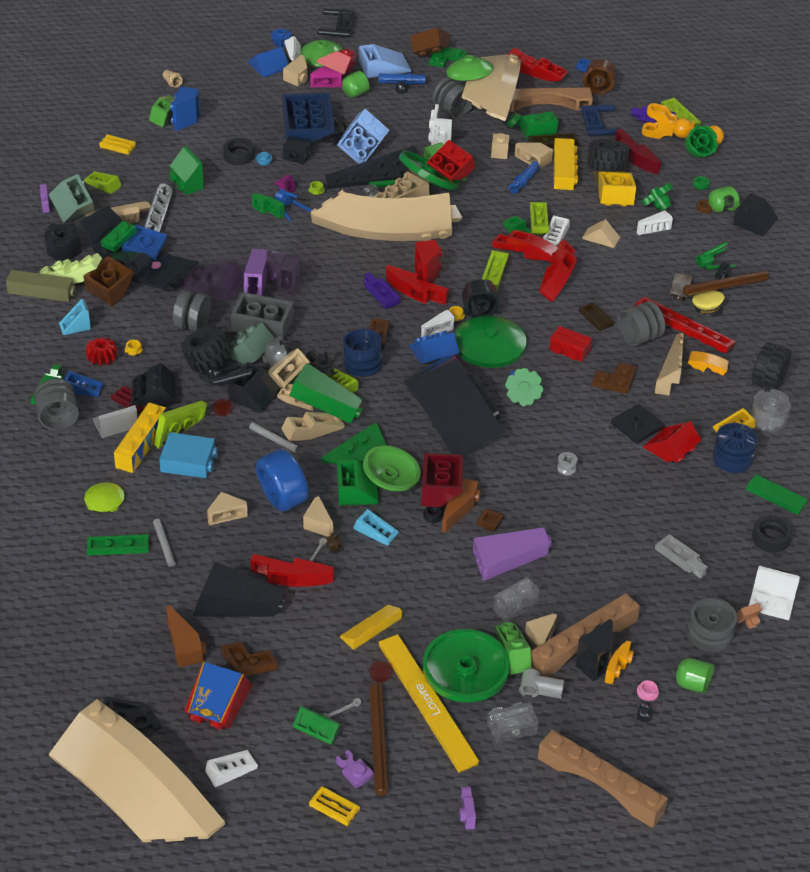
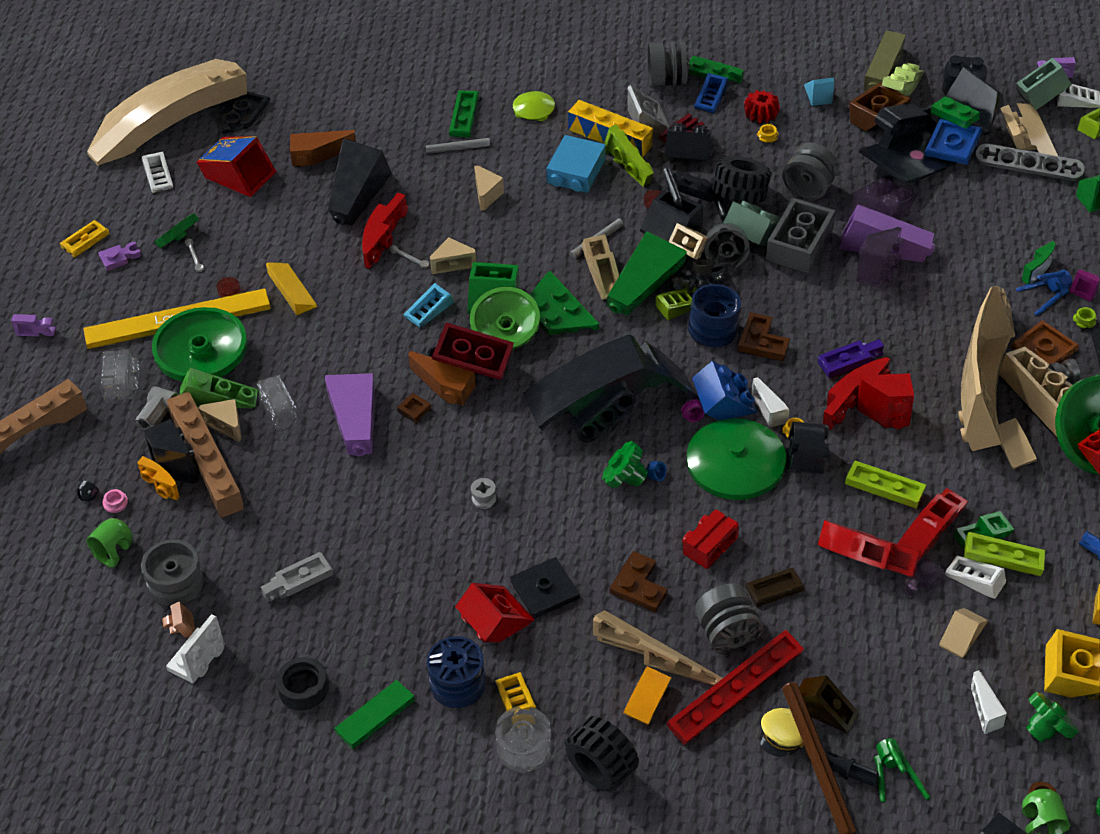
camera: 105 degrees right, 5 degrees up
(246, 663) = (271, 186): reddish brown plate -> none
(282, 480) = (497, 217): blue wheel -> none
(334, 542) = (413, 267): dark brown plate -> none
(378, 739) = (146, 275): reddish brown axle -> none

